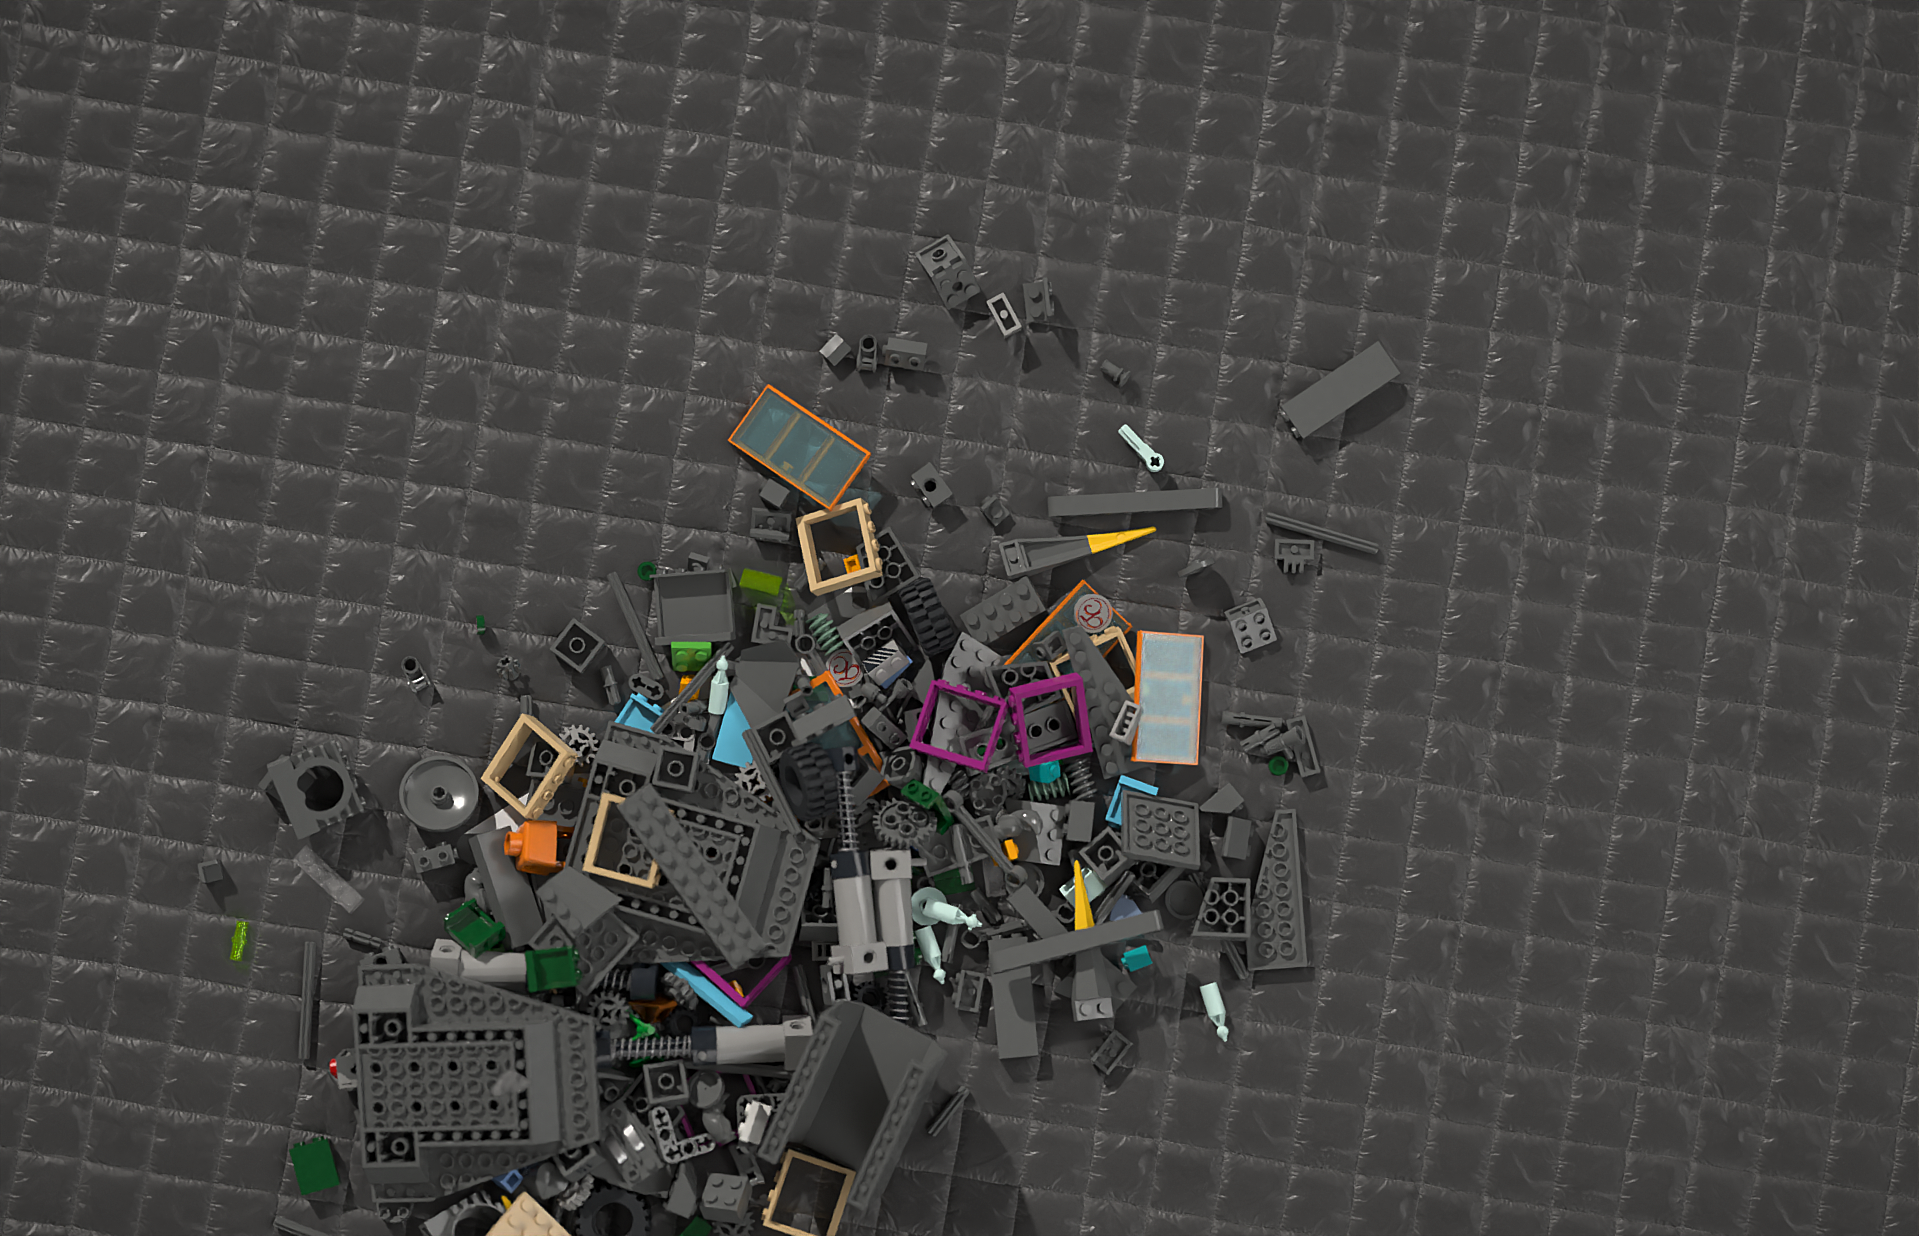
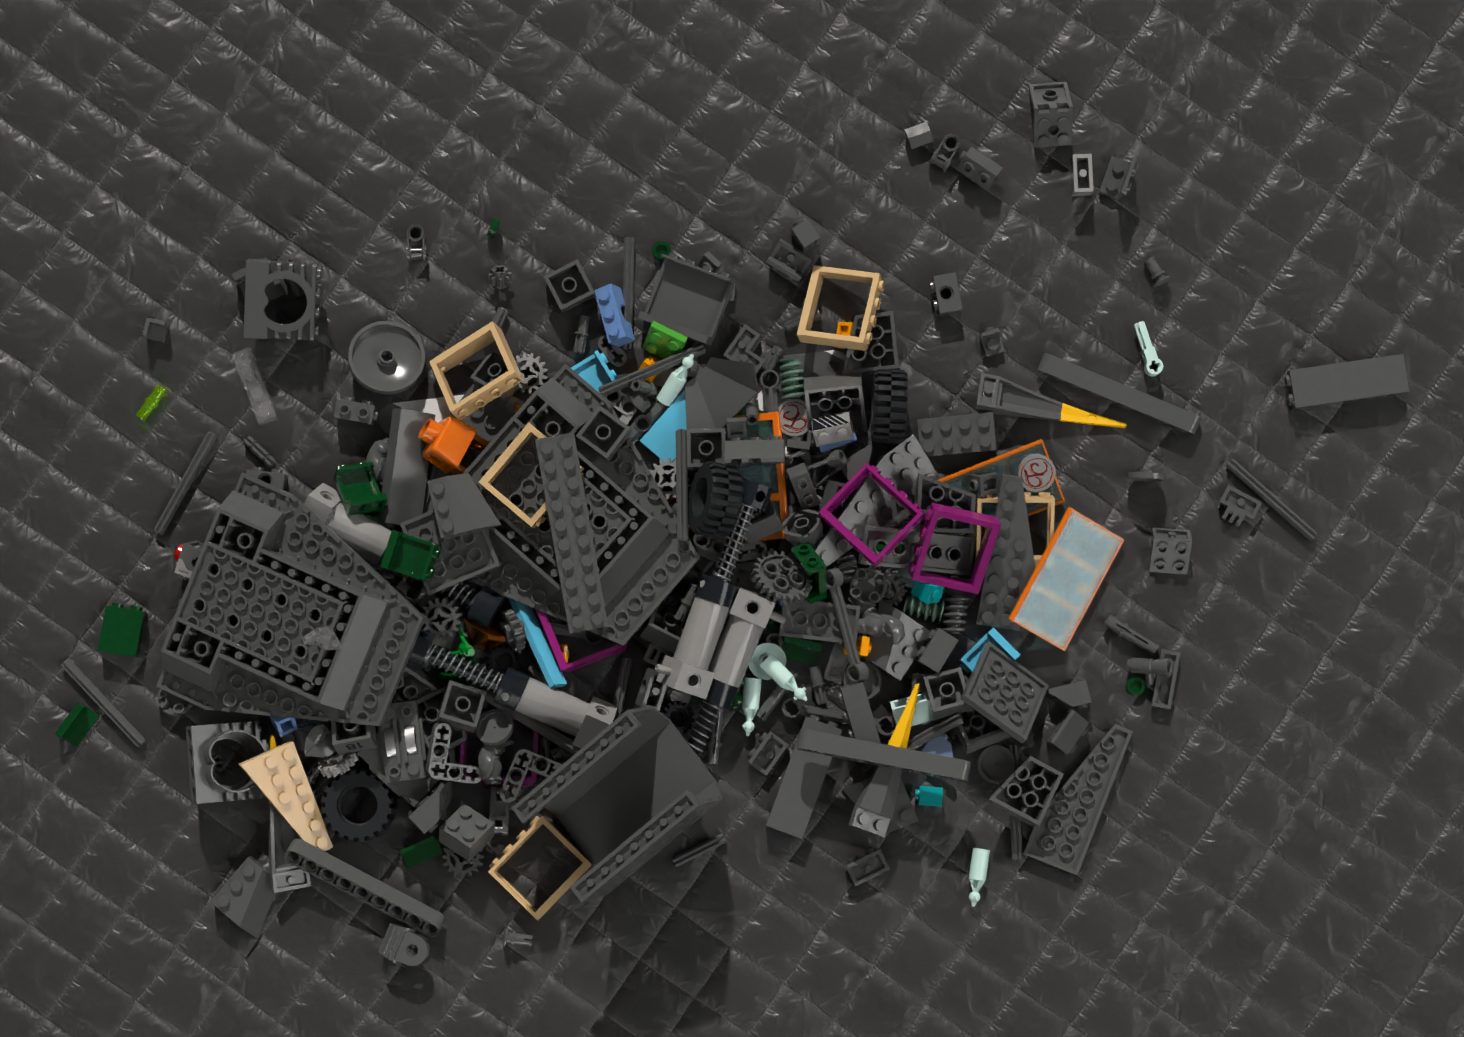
camera: 30 degrees right, 0 degrees up
(623, 644) = (617, 328): none -> medium blue arch
(756, 1120) = (524, 778): white bracket -> none
(760, 582) = (756, 307): clear neon green brick -> none
(799, 447) = (847, 205): clear light blue door -> none
(873, 693) = (808, 450): dark grey cylinder -> none
(963, 862) = (818, 629): dark grey pin -> none
(1118, 726) = (1019, 593): light grey slope -> none
(1260, 737) = (1131, 653): dark grey pin -> none

